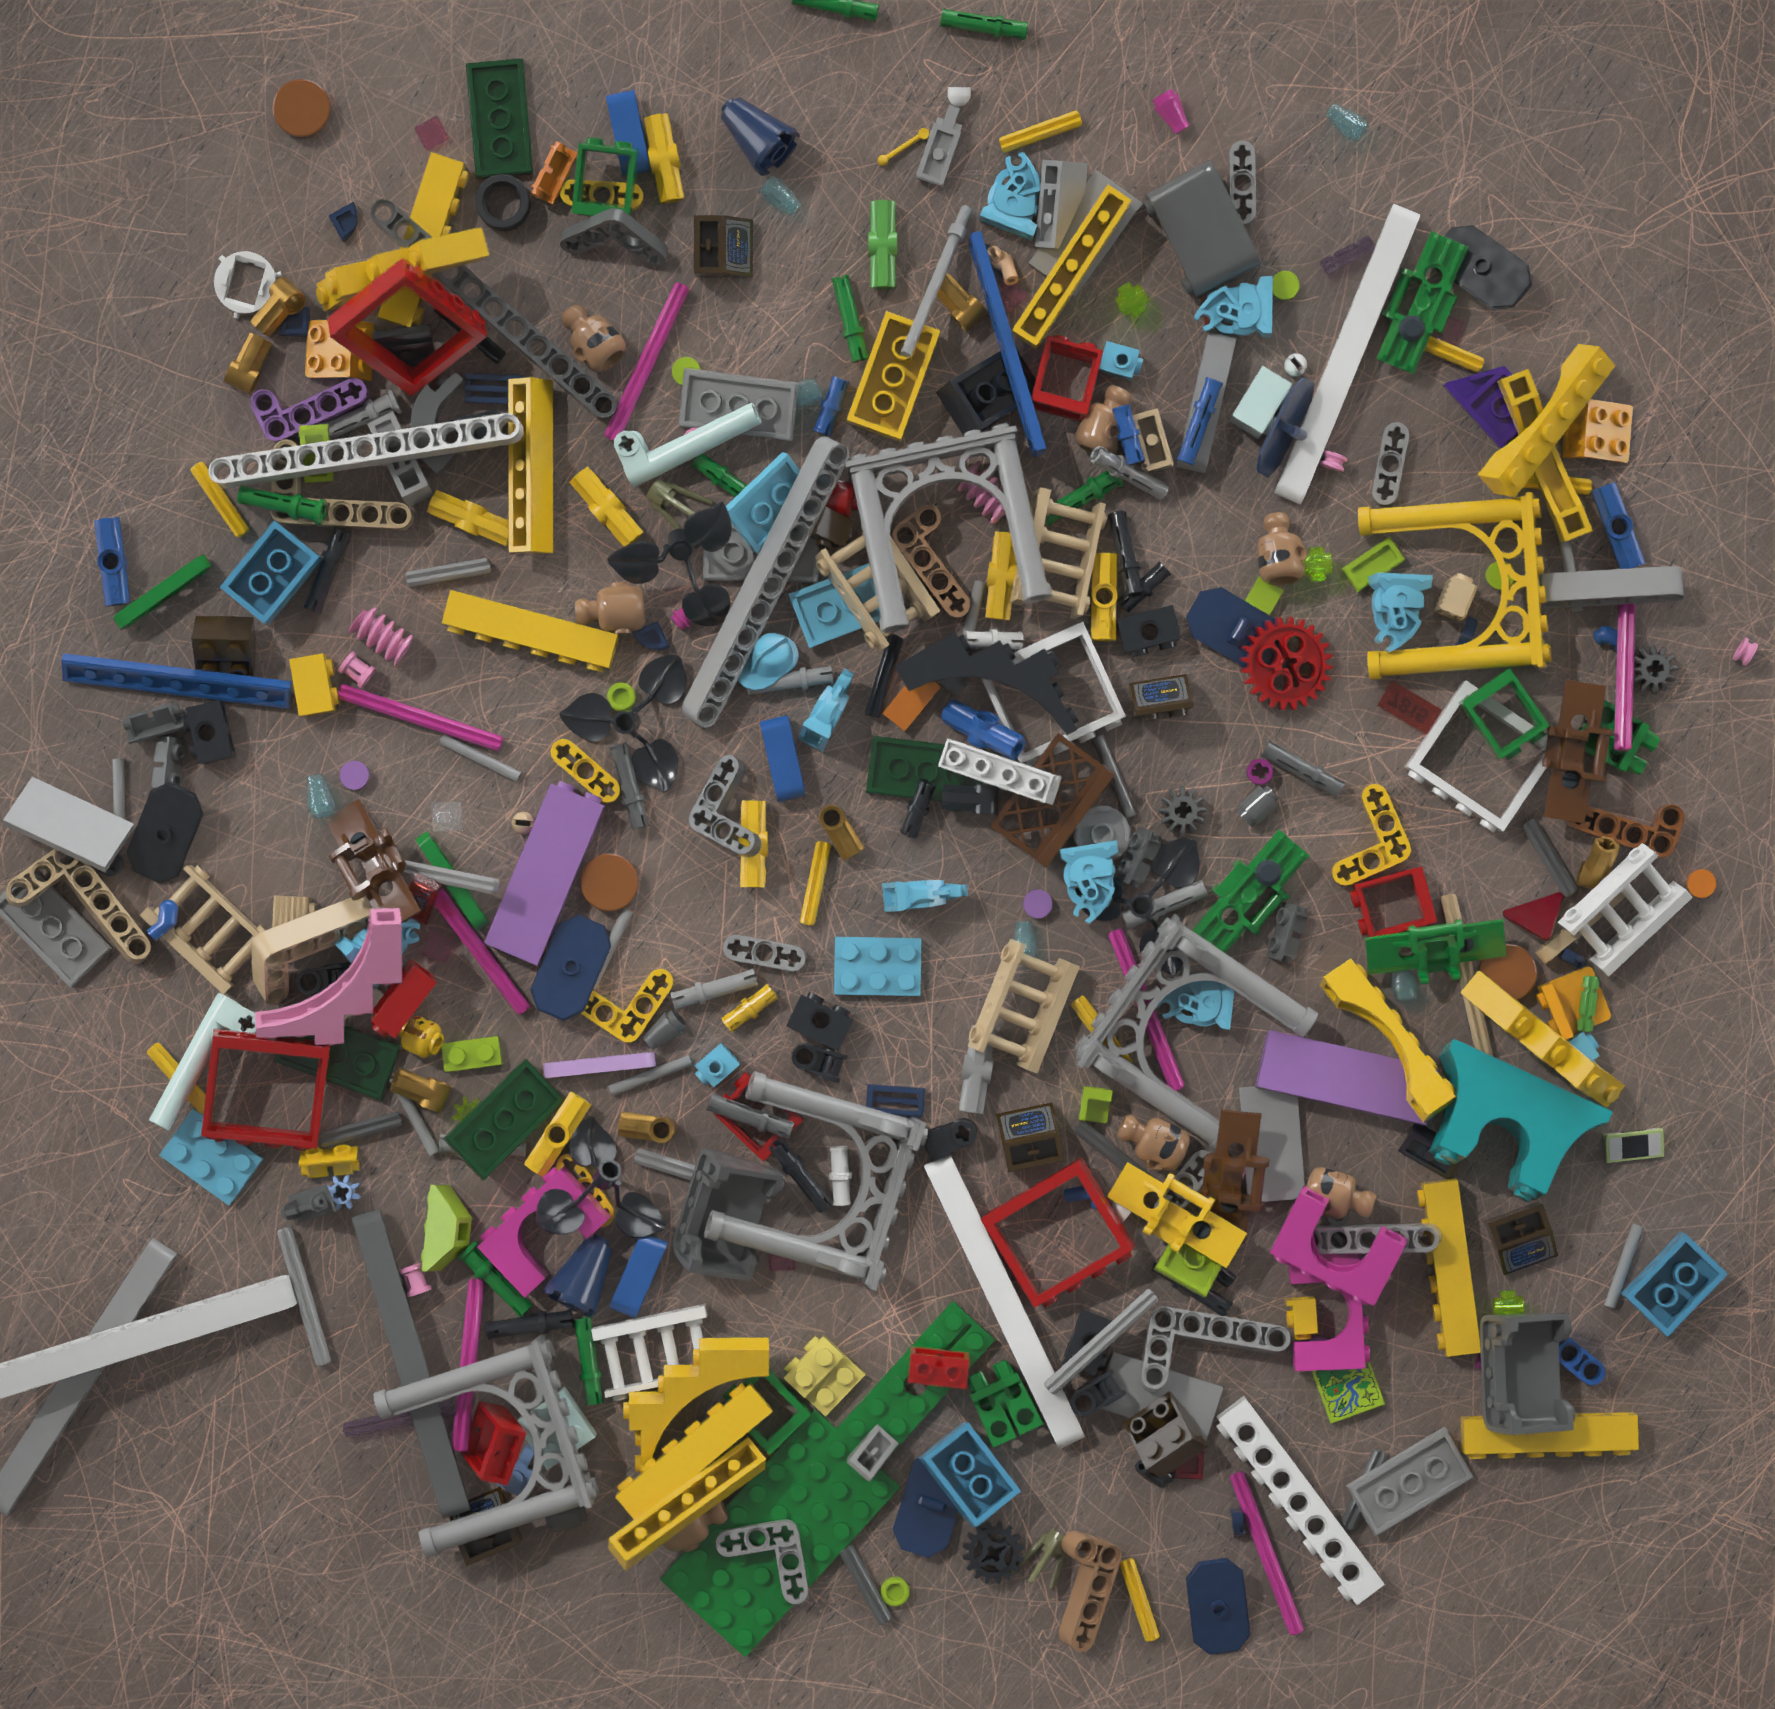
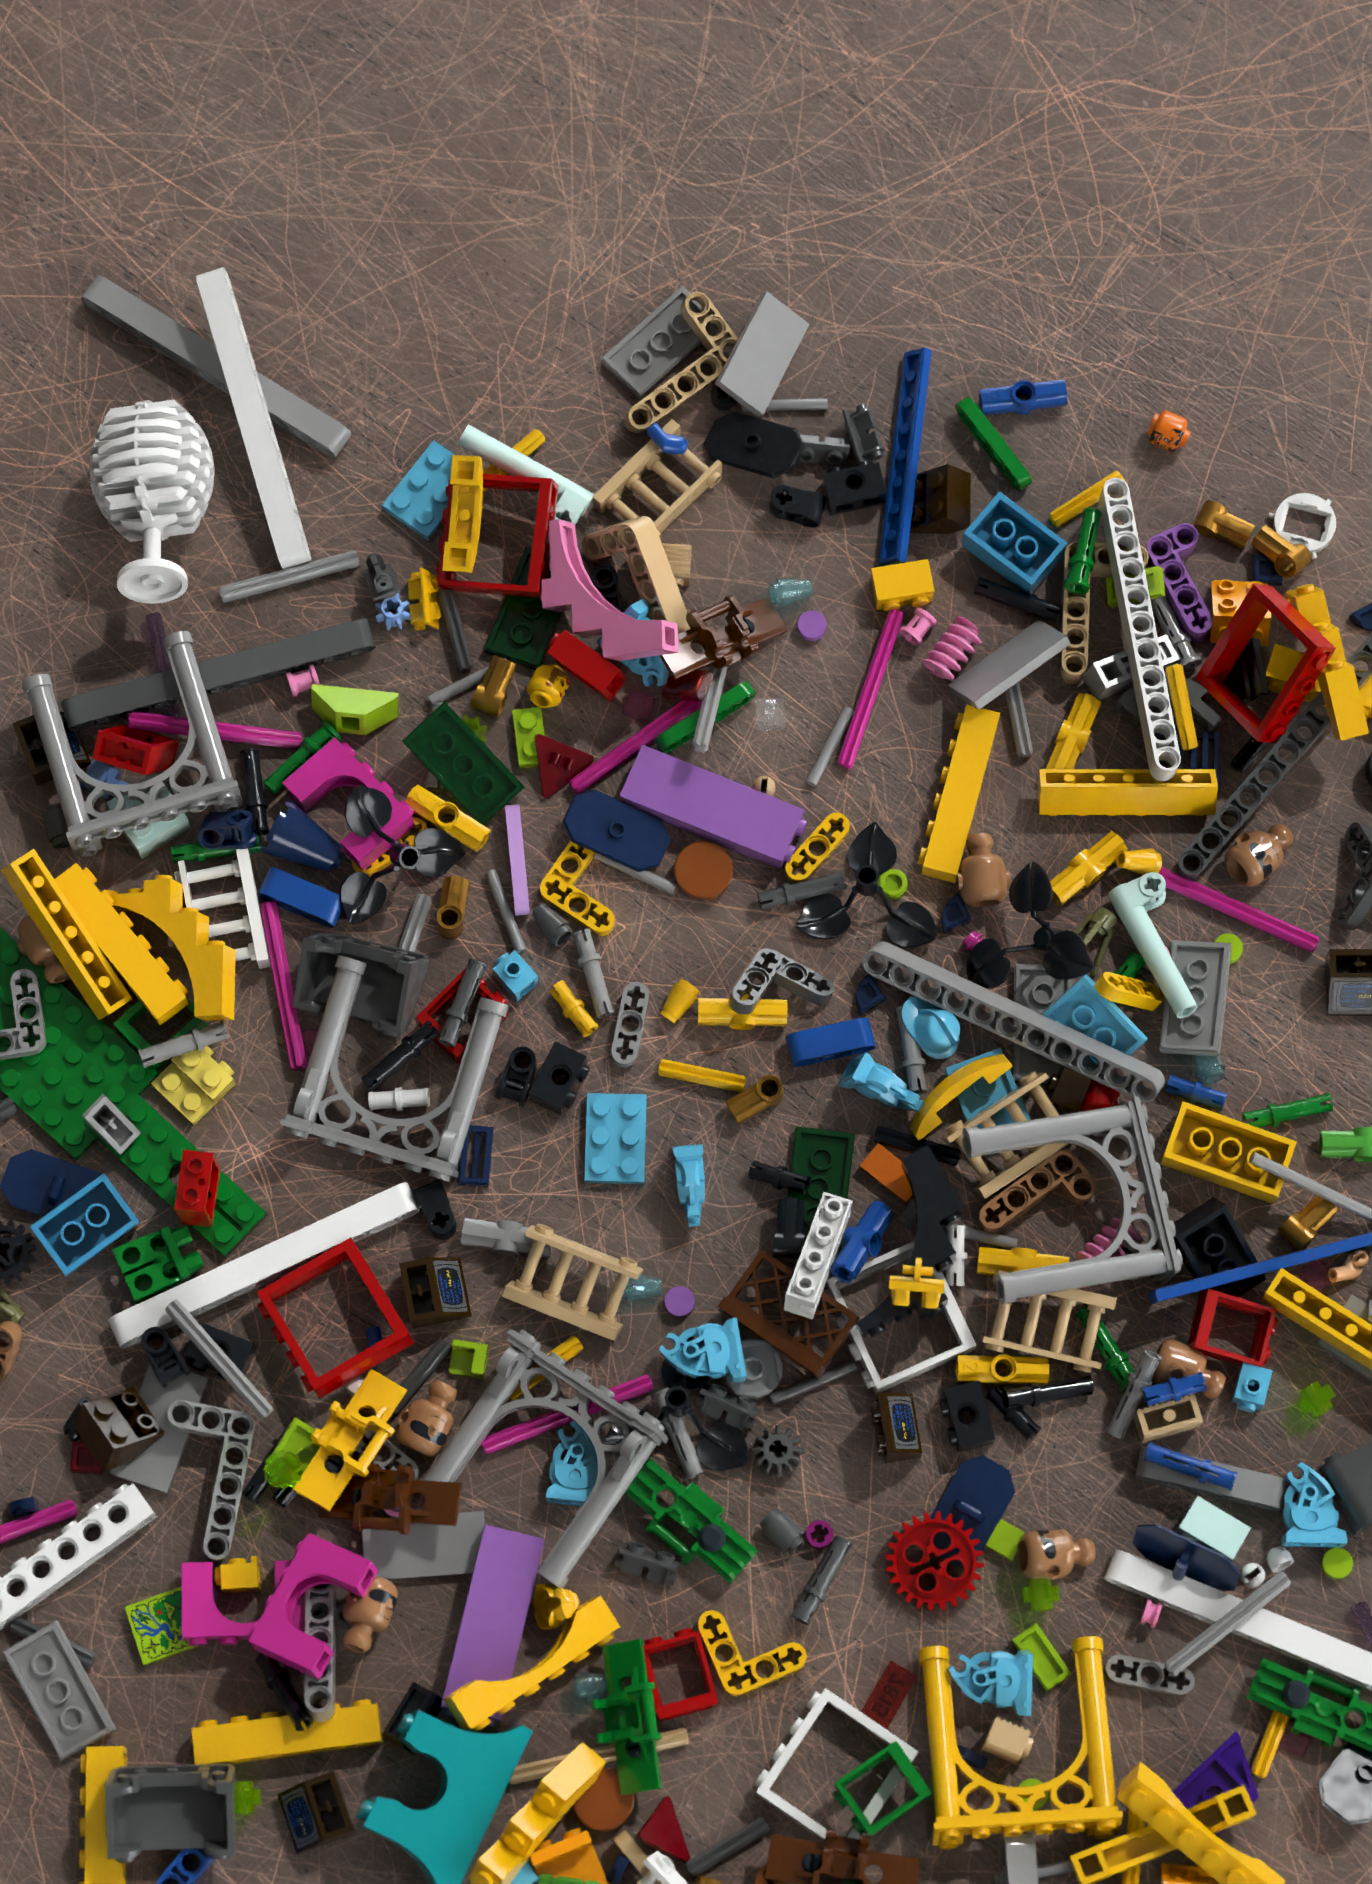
camera: 90 degrees right, 15 degrees down
(149, 416) = (1168, 431): none -> orange head
(217, 1436) = (152, 483): none -> white plant
(230, 782) = (801, 505): none -> black piece
(249, 1122) = (465, 514): none -> yellow slope
(398, 580) = (1009, 664): none -> light grey tile
(444, 410) = (1181, 706): none -> yellow axle
(499, 1025) = (558, 763): none -> dark red piece
(572, 1351) = (229, 828): none -> dark blue piece
(600, 453) = (1140, 861): none -> yellow cone
(726, 1290) = (283, 985): none -> dark pink axle
(733, 721) = (868, 995): none -> dark blue tile
(735, 469) = (1129, 991): none -> yellow beam
(741, 905) = (679, 1000): none -> yellow cone
(788, 1375) = (183, 1044): none -> light grey pin
(813, 606) = (988, 1067): none -> yellow slope
(1031, 677) = (930, 1288): none -> yellow hips
(1209, 1278) = (282, 1469): none -> clear neon green gear
(1280, 340) = (1279, 1559): none -> white hinge
(1331, 1020) = (553, 1605): none -> yellow hair
(1347, 390) = (1227, 1623): none -> light grey axle
(1402, 1276) = (278, 1680): none -> black pin

